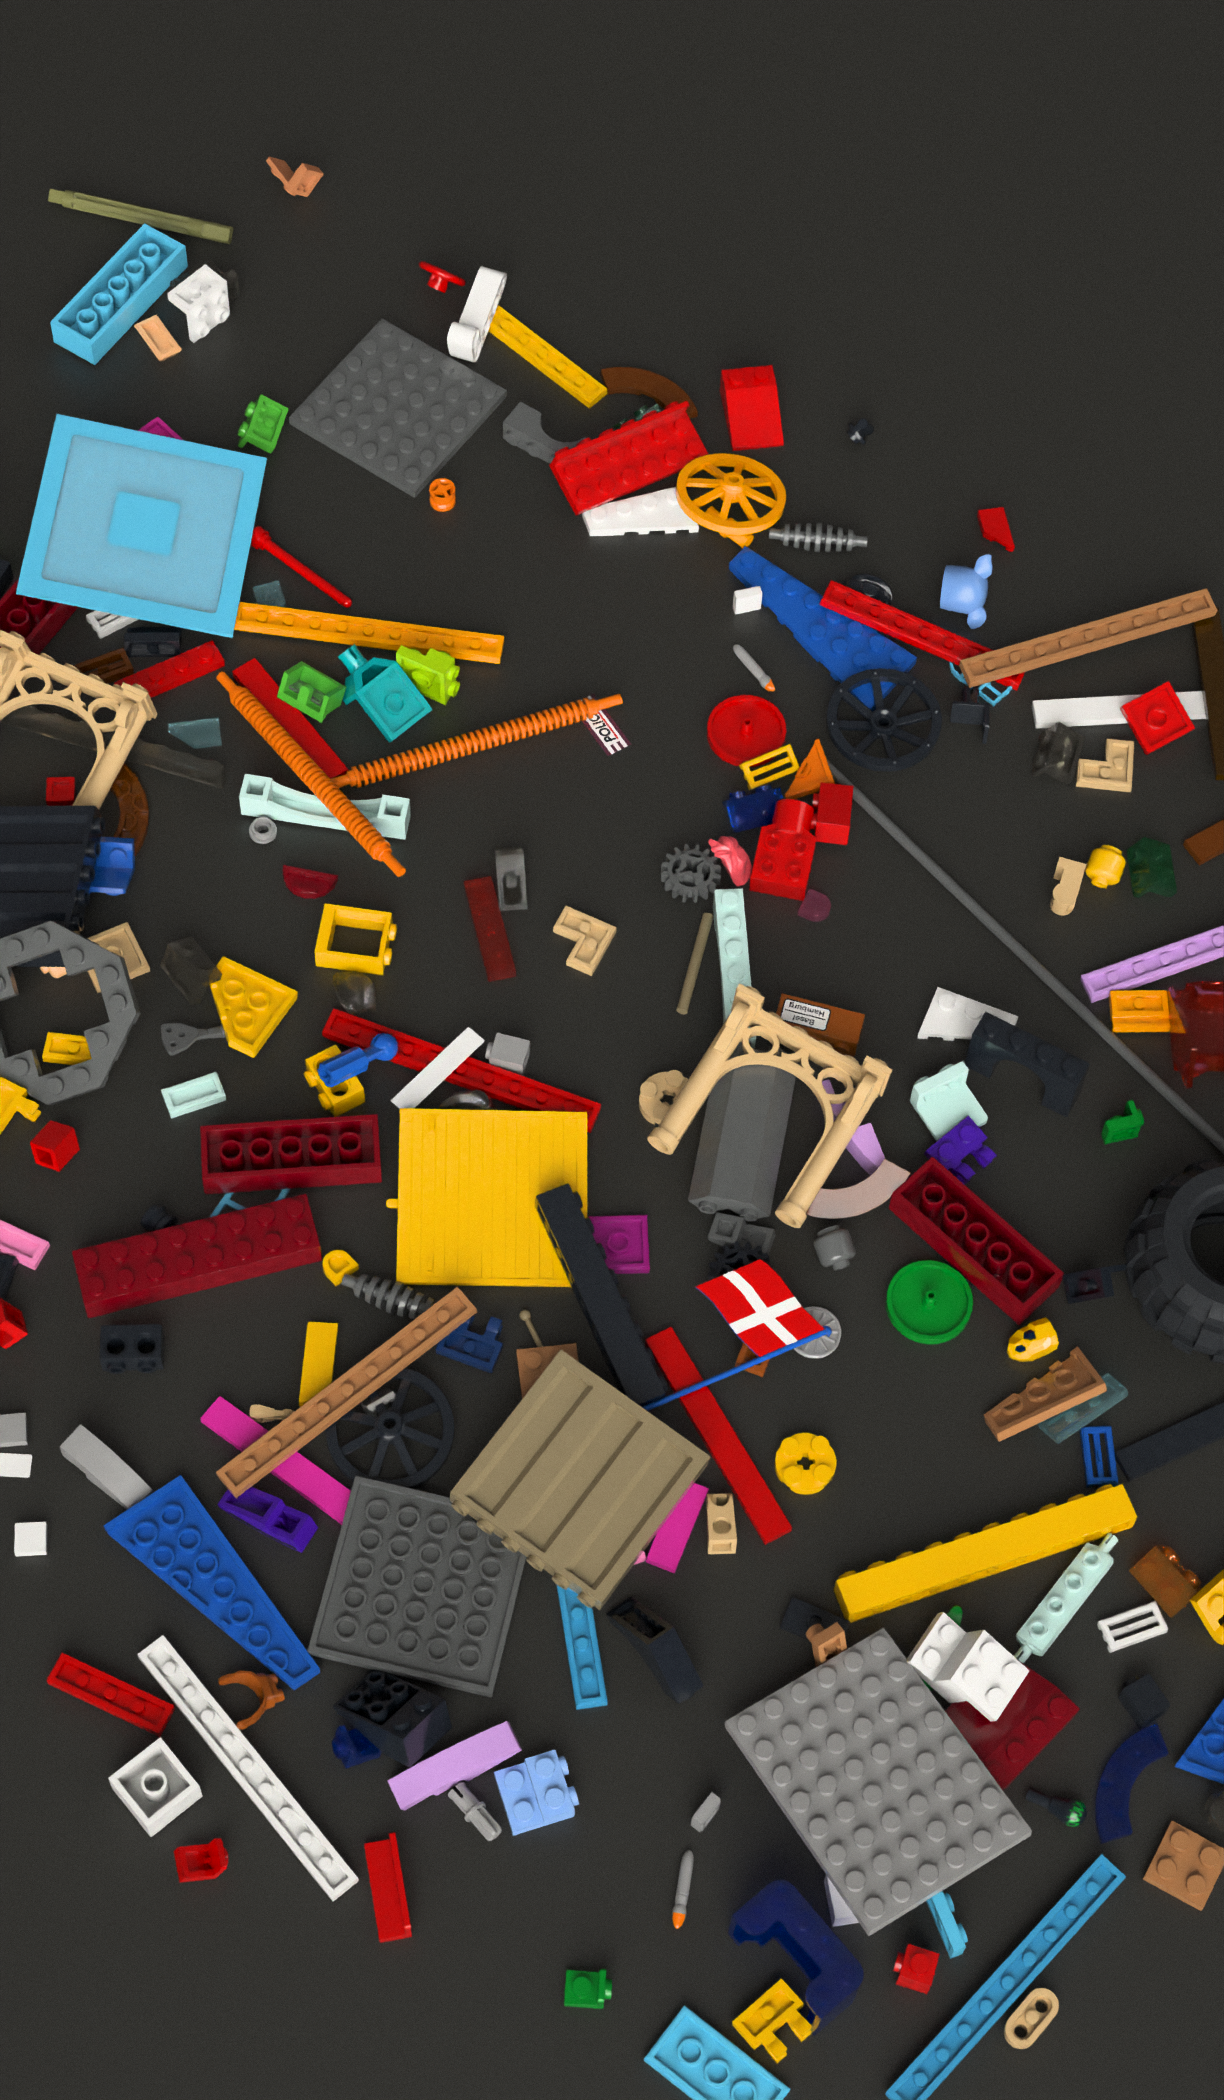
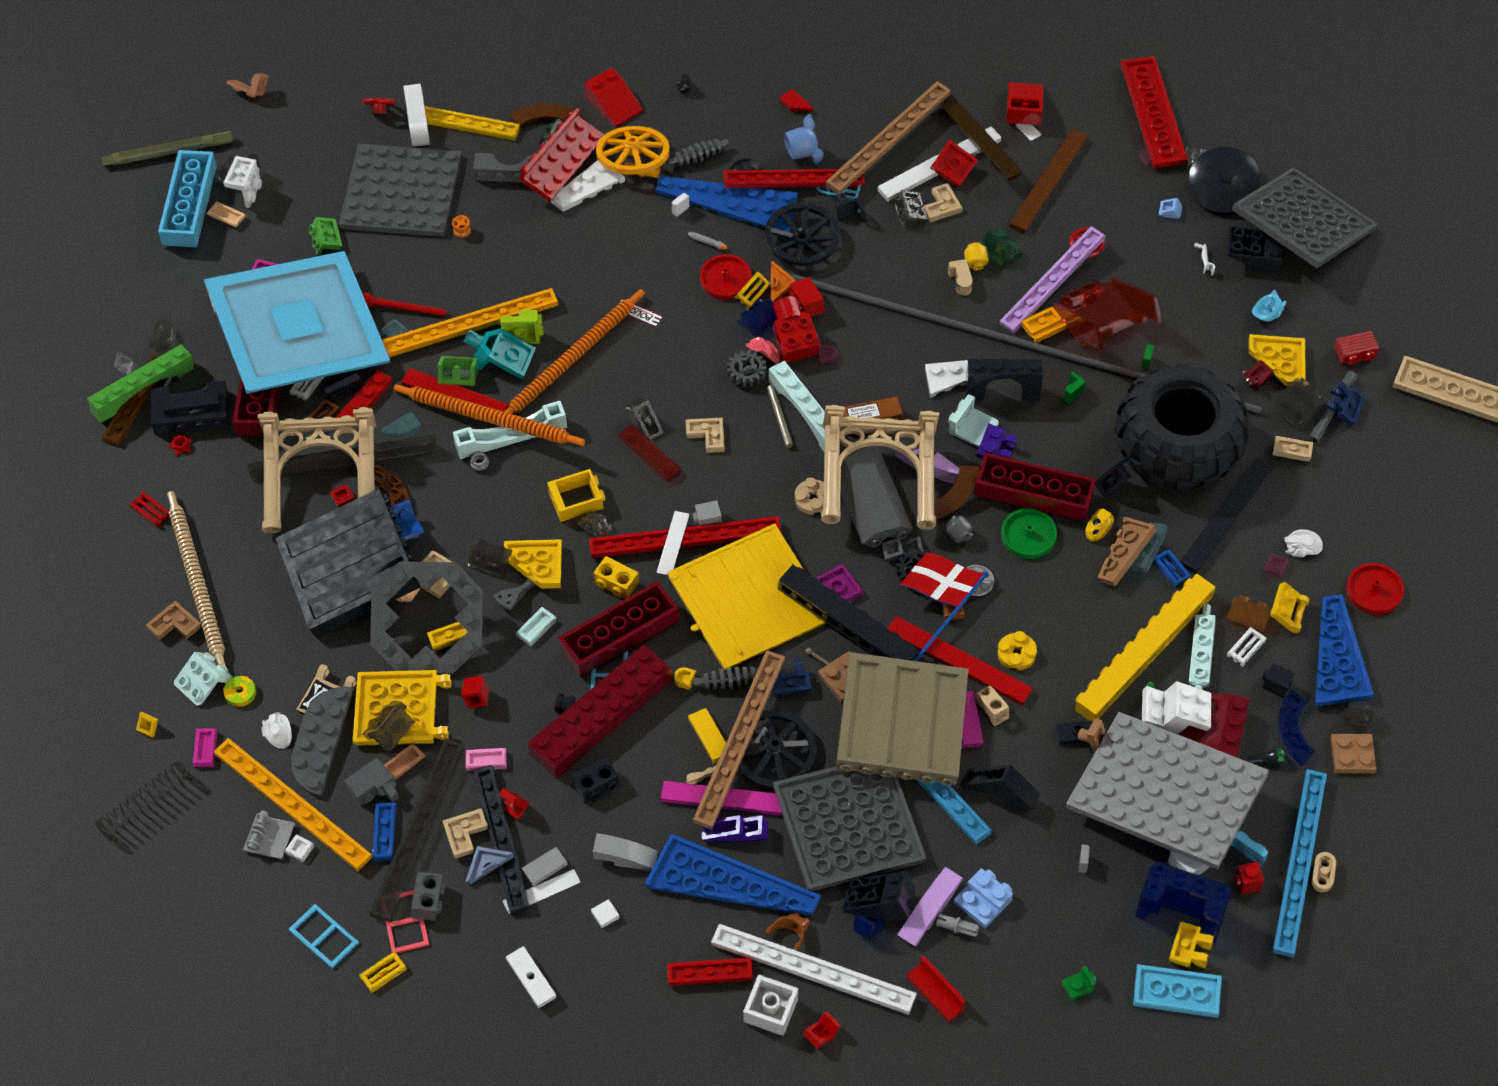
camera: 25 degrees left, 5 degrees down
(308, 883) = (525, 478): dark red tile -> none
(356, 1060) = (625, 557): blue piece -> none
(468, 1101) = (700, 550): clear smoke hat -> none
(683, 1886) = (1096, 906): light grey piece -> none

